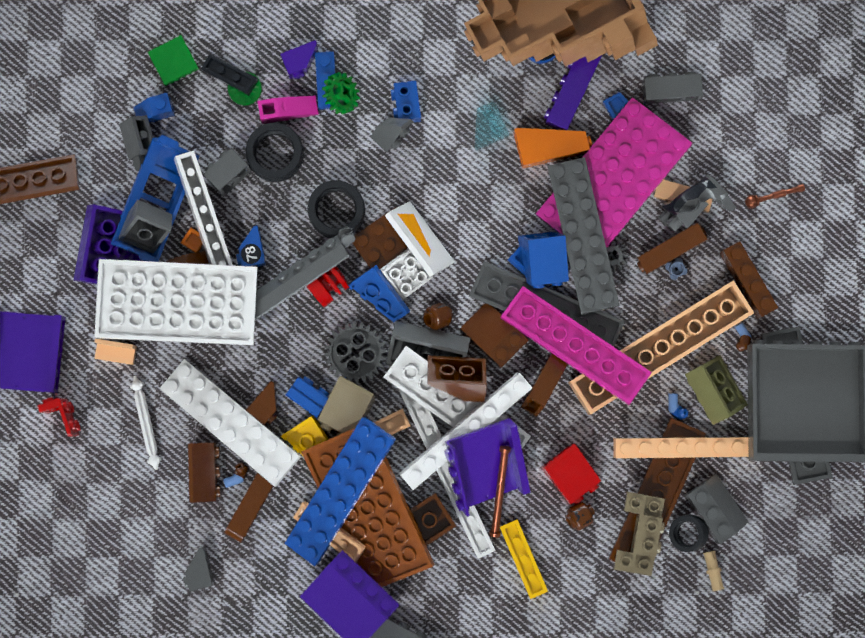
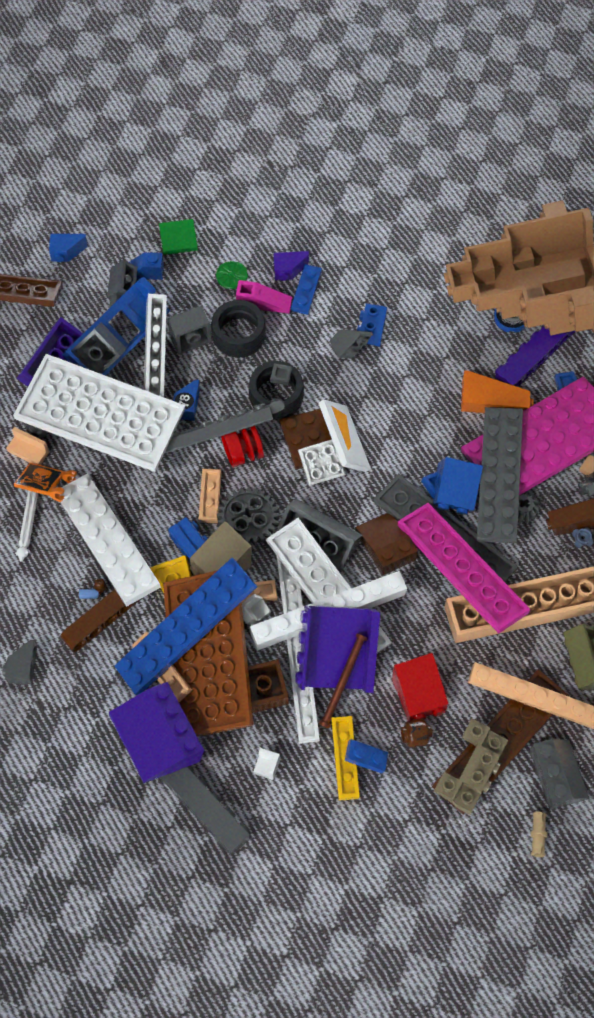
camera: 25 degrees right, 20 degrees down
(62, 112) = (66, 246): none -> blue slope
(144, 382) = (44, 480): none -> orange flag
(192, 240) = (136, 379): orange tile -> none
(203, 472) = (63, 573): reddish brown slope -> none
(229, 74) = (222, 259): black tile -> none
(265, 405) = (146, 534): reddish brown slope -> none
(310, 341) = (210, 495): none -> light nougat tile
(337, 196) = (281, 374): none -> dark grey tile
(340, 93) = (315, 298): green gear -> none
(378, 290) = (290, 471): blue wing -> none
(397, 448) = (254, 610): none -> white panel
(438, 316) = (338, 507): reddish brown head -> none
(456, 589) = (267, 764): none -> white panel
(458, 376) = (340, 560): reddish brown slope -> none
(489, 126) = (441, 366): clear light blue wing -> none
(542, 552) = (366, 756): none -> blue plate
(544, 385) = (420, 598): reddish brown slope -> none
(675, 409) = (544, 664): arm -> none
(675, 536) = (533, 795): black tyre -> none

